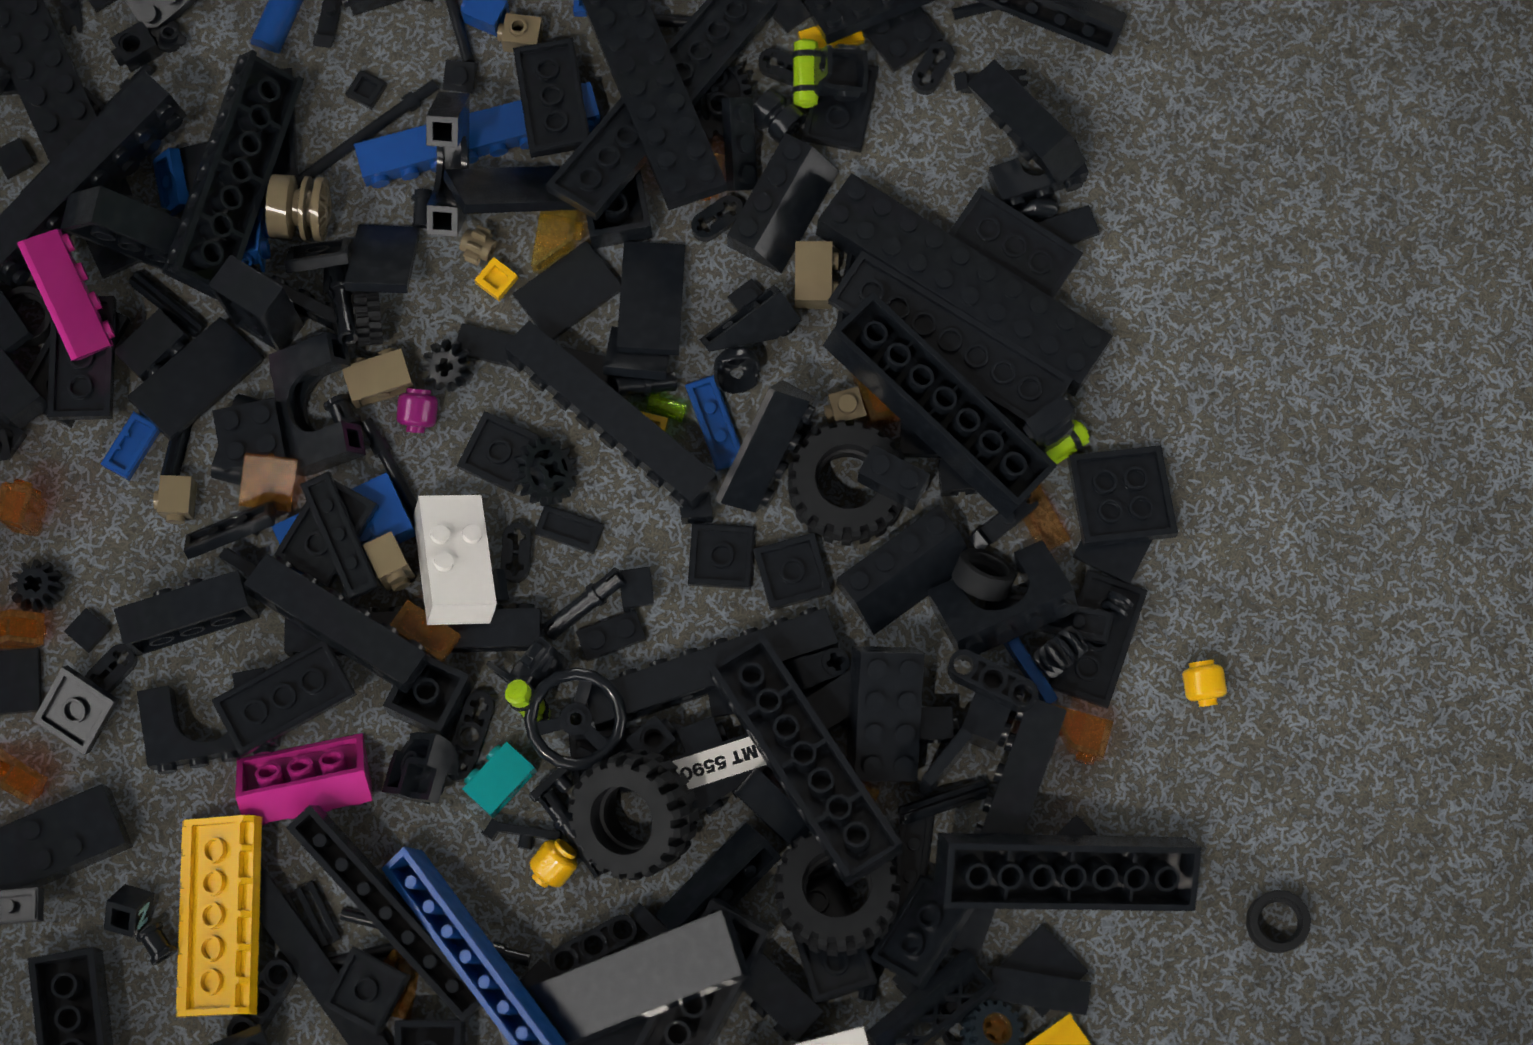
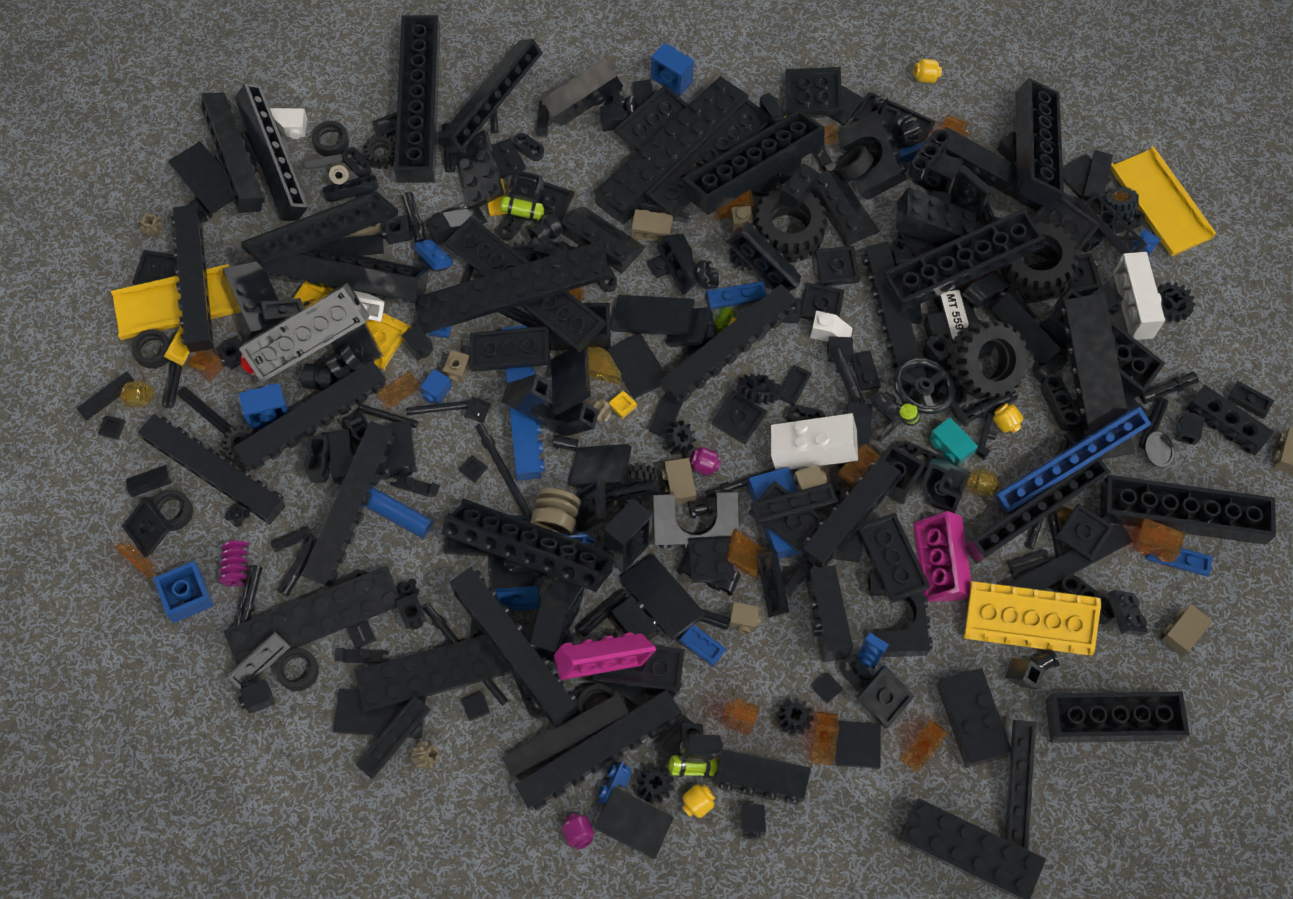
camera: 85 degrees left, 10 degrees down
(126, 675) = (871, 651): none -> blue plate
(437, 831) = (983, 482): none -> clear yellow head
(671, 573) = (829, 325): none -> white slope
(1114, 259) = (672, 69): none -> blue brick
(1296, 904) = (1059, 71): black tyre -> none

